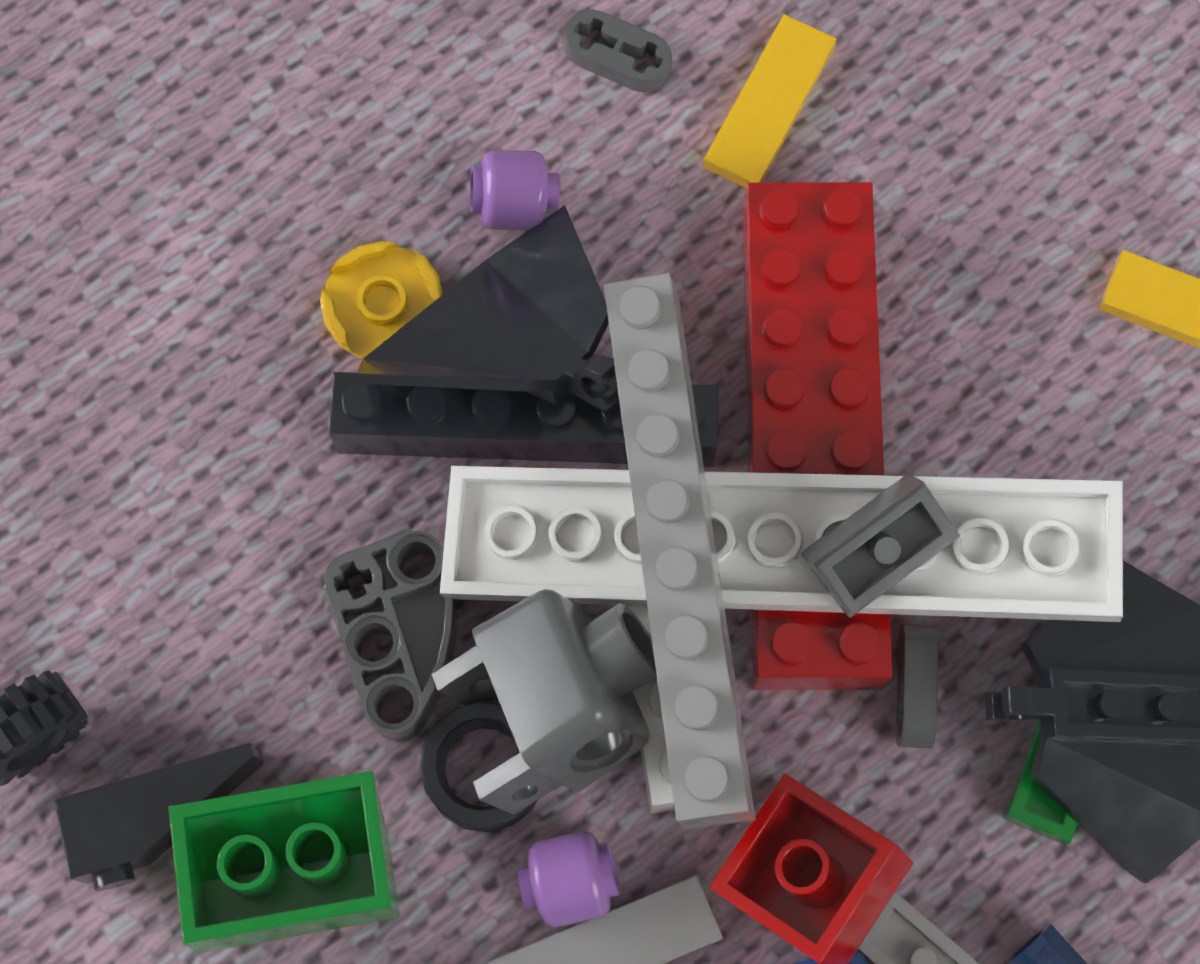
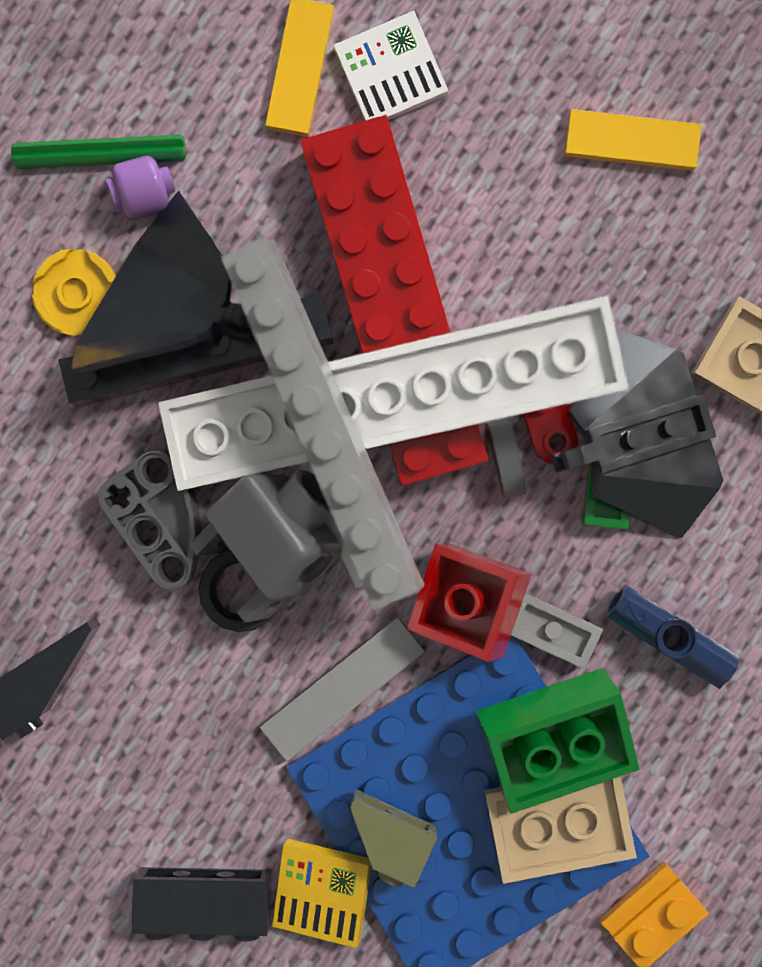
camera: 15 degrees left, 15 degrees up
(282, 862) = (132, 690): green slope -> none
(468, 132) = (97, 151): none -> green axle
(569, 879) = (317, 644): medium lavender head -> none
(625, 40) = (183, 48): dark grey beam -> none
(880, 544) = (457, 383): dark grey slope -> none
(892, 135) = (391, 68): none -> white tile
(985, 657) = (544, 424): none -> red plate

